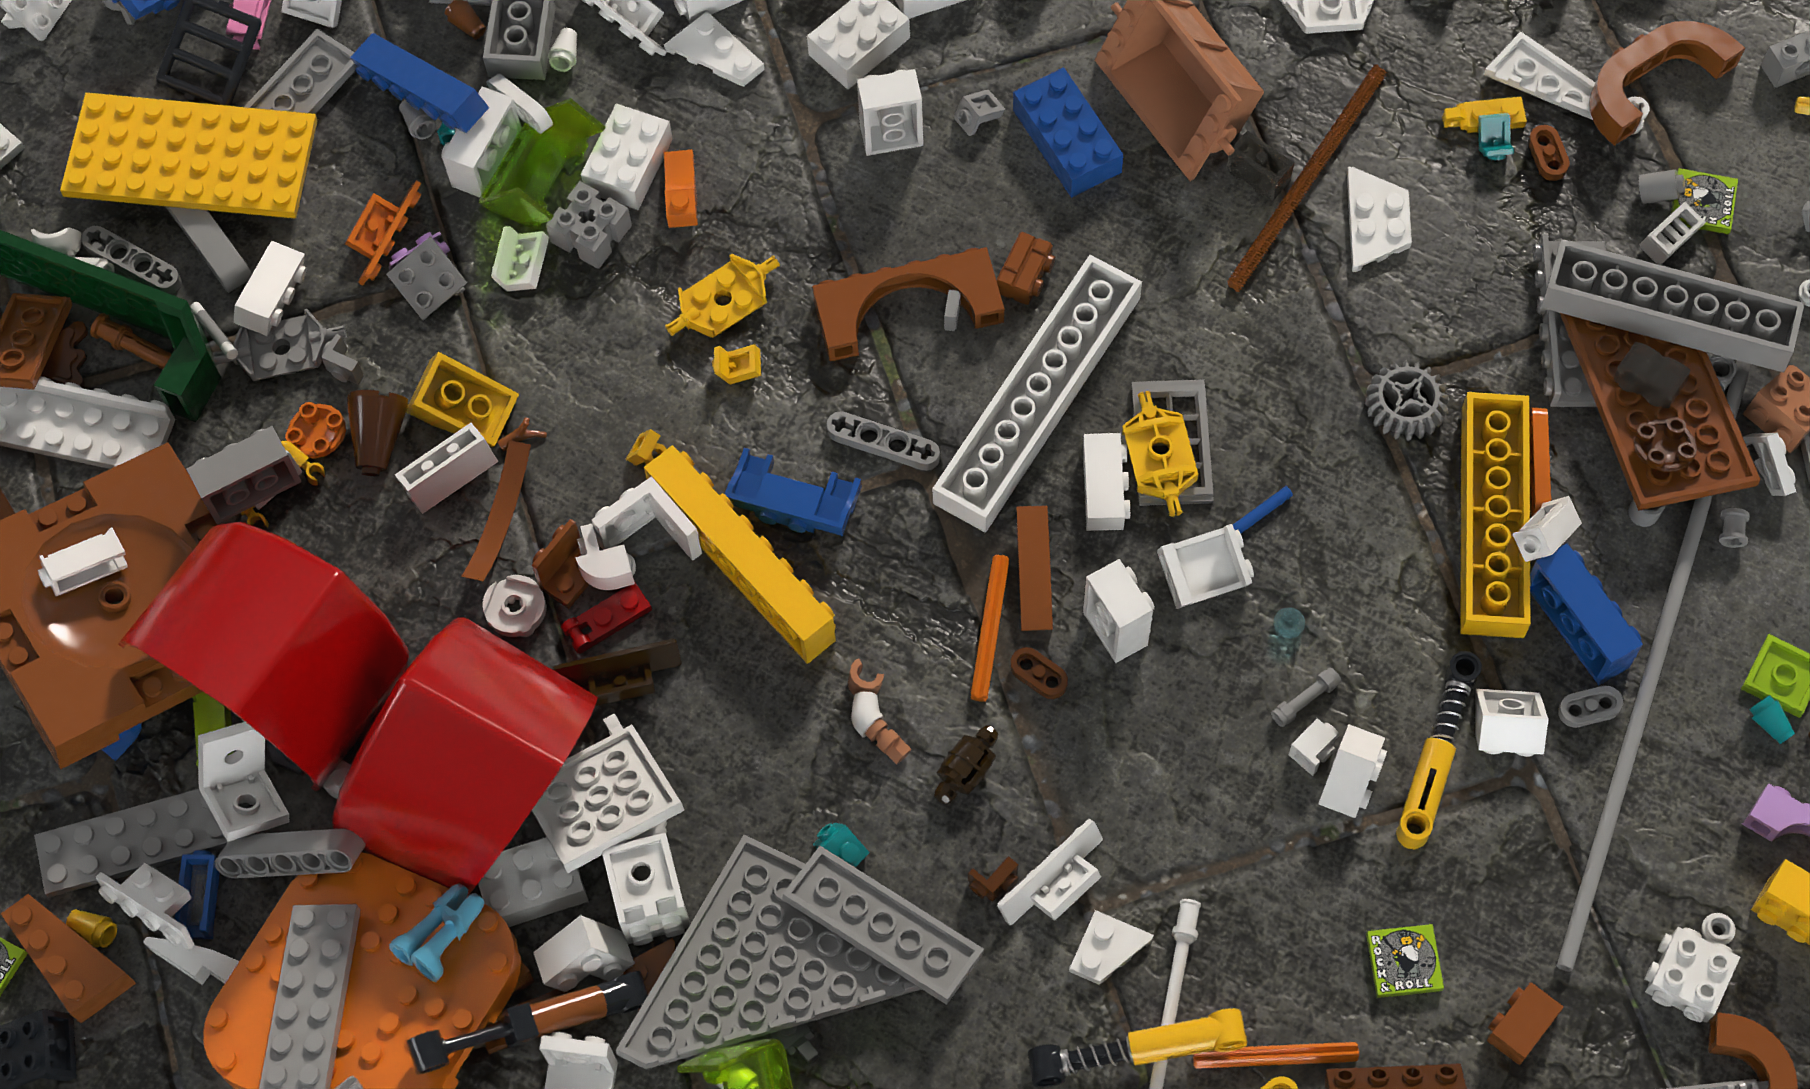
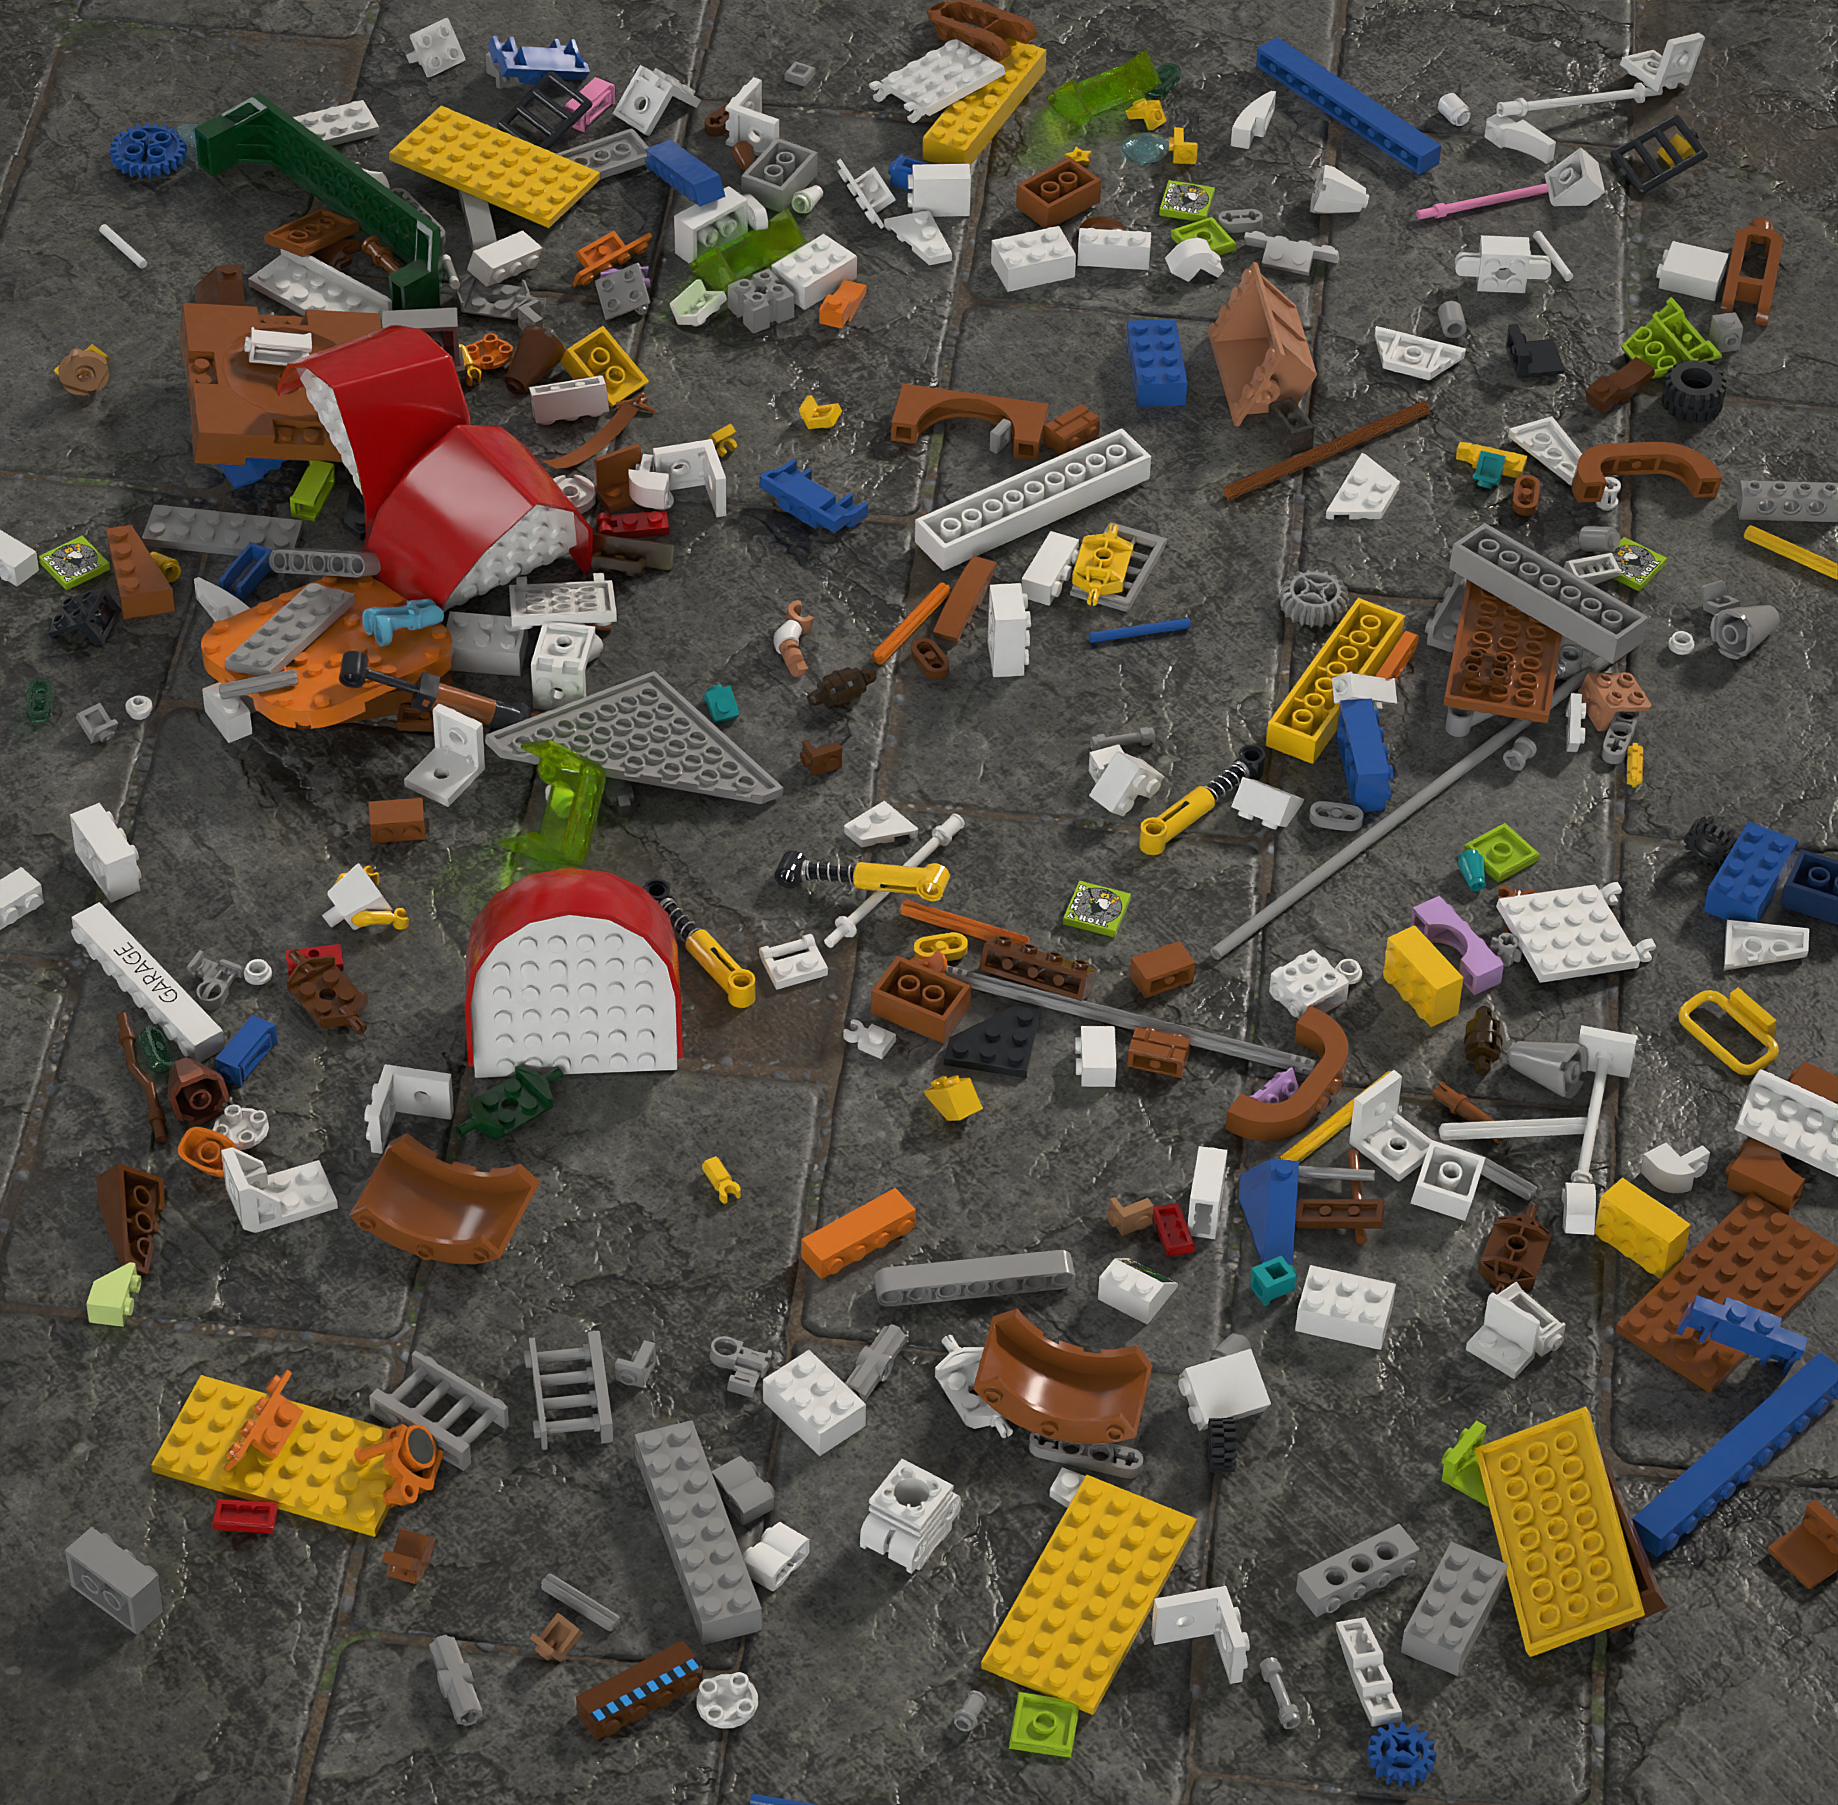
camera: 20 degrees right, 20 degrees down
(152, 899) = (211, 558): white bracket -> none
(238, 779) = (312, 518): white bracket -> none
(417, 121) = (672, 203): light grey cone -> none
(582, 950) = (497, 681): white brick -> none
(736, 279) = (851, 374): yellow plate -> none
(745, 556) = (755, 517): yellow brick -> none
(881, 445) = (878, 479): light grey beam -> none
(883, 924) = (721, 746): light grey plate -> none
(890, 111) = (1024, 300): white brick -> none
(977, 109) = (1097, 328): light grey bracket -> none
(1058, 879) = (866, 771): white bracket -> none
(1205, 566) = (1093, 639): white panel -> none
(1292, 615) = (1138, 694): clear light blue plate -> none
(1651, 375) = (1504, 627): clear smoke brick -> none

